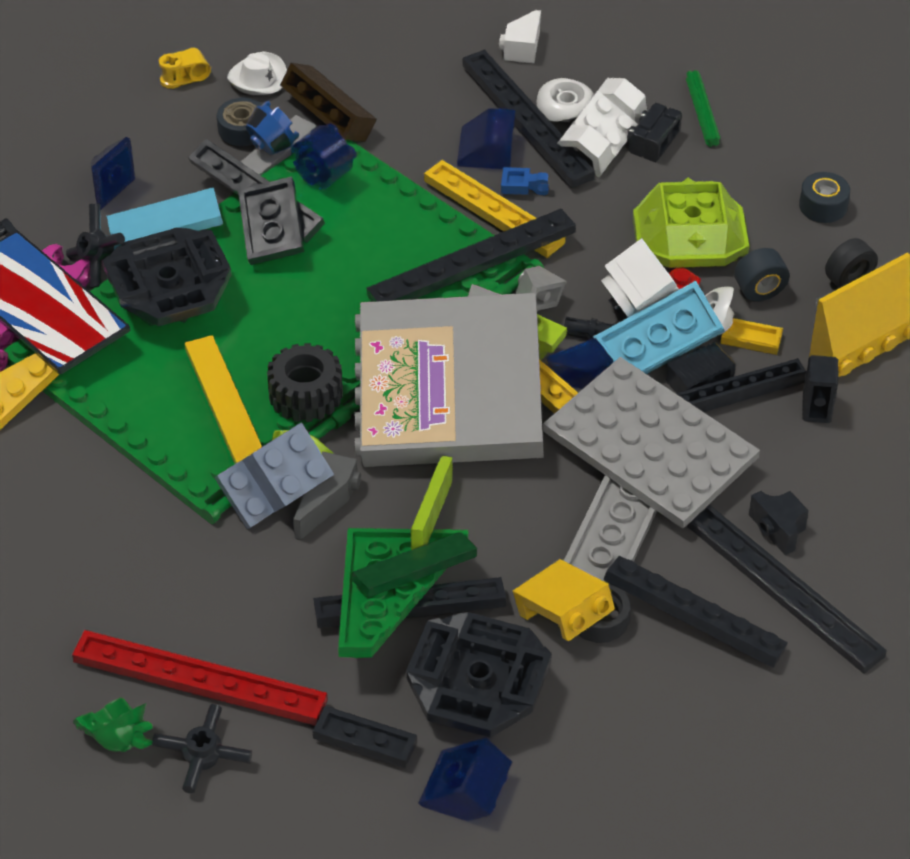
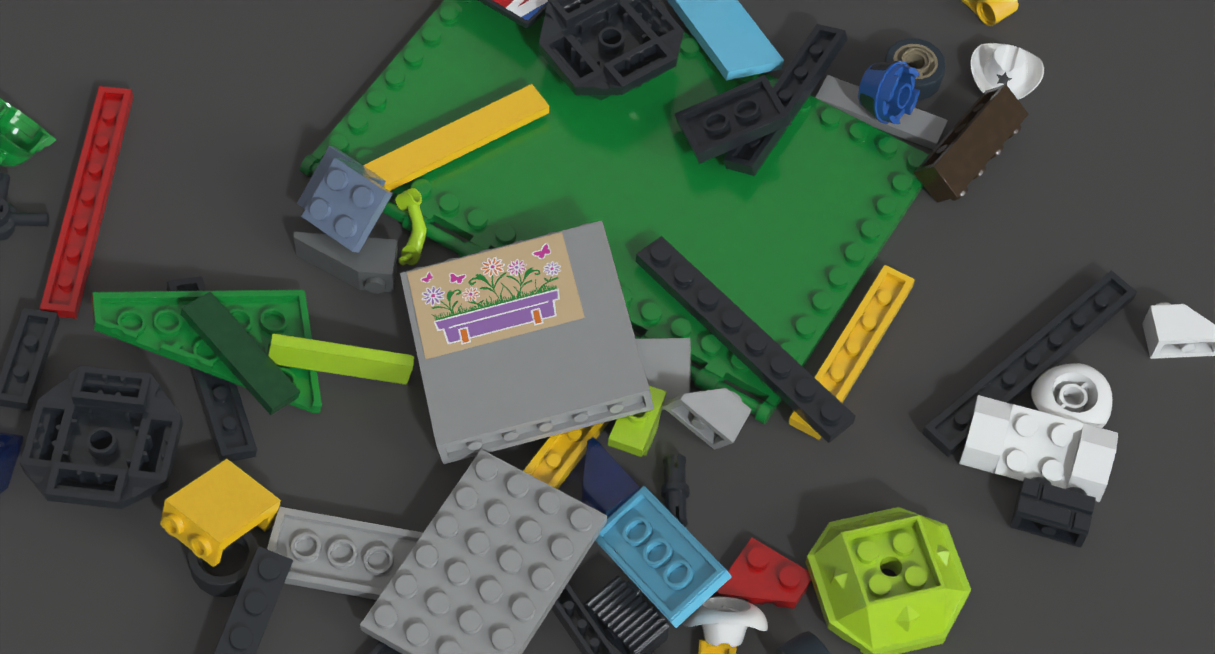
camera: 75 degrees right, 10 degrees up
(300, 399) = (487, 178): black tyre -> none
(323, 156) = (850, 146): clear blue brick -> none
(488, 140) = (971, 328): clear blue slope -> none
(520, 181) = (910, 370): blue plate -> none
(637, 280) = (734, 521): white piece -> none
(703, 108) = (1130, 567): green axle -> none

